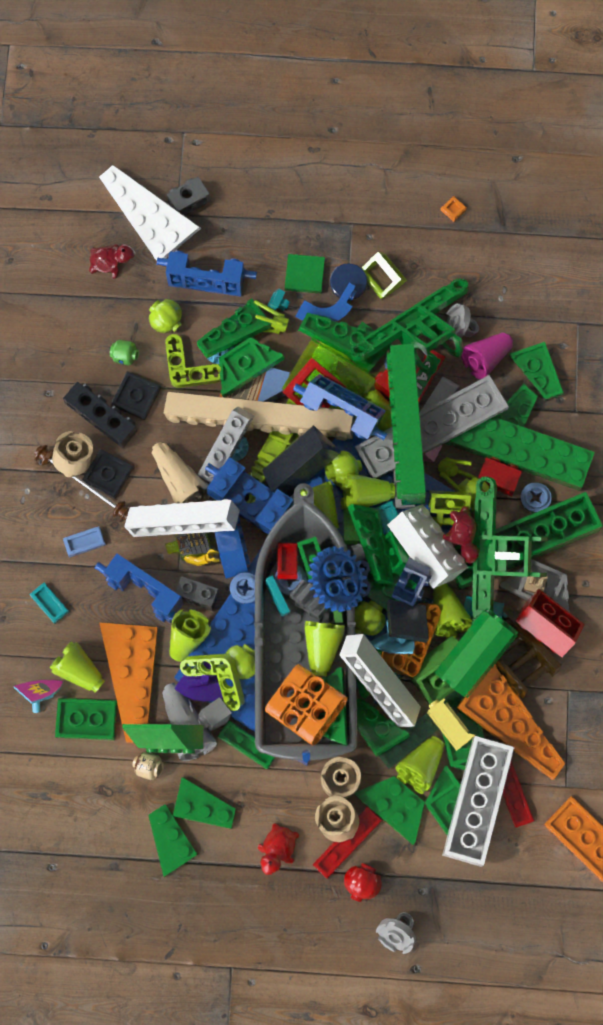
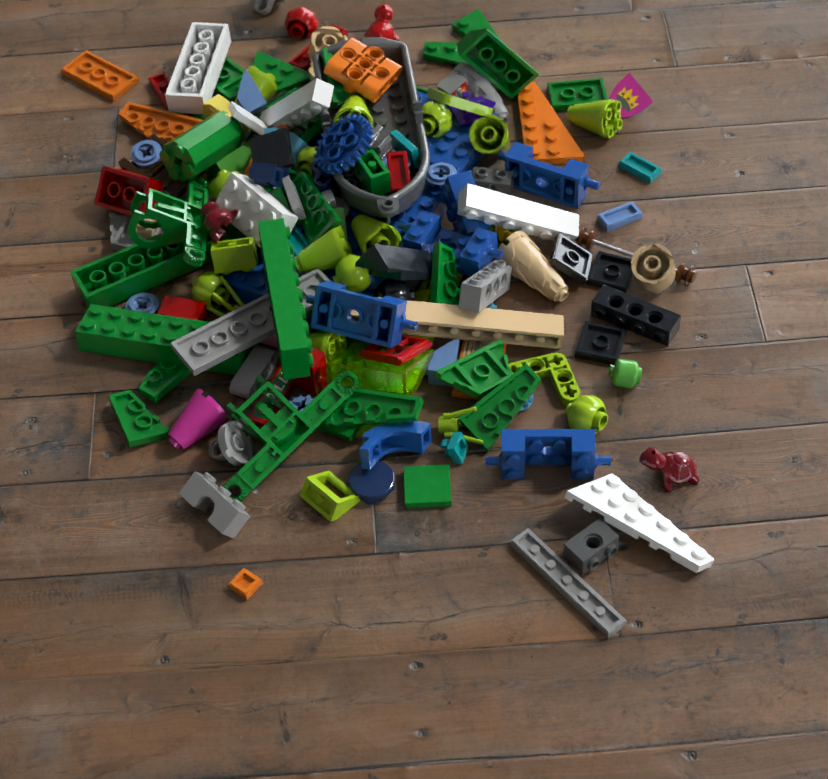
camera: 175 degrees right, 25 degrees down
(142, 482) = (571, 258): none -> black tile
(212, 177) = (568, 583): none -> light grey tile
(261, 457) = (443, 276): none -> green wing
(390, 549) = (293, 198): none -> light grey tile
(425, 738) = (249, 95): none -> medium blue slope
(428, 688) = (247, 118): none -> white tile
(481, 282) = (228, 514): none -> light grey arch
(530, 661) = (145, 147): none -> medium blue gear

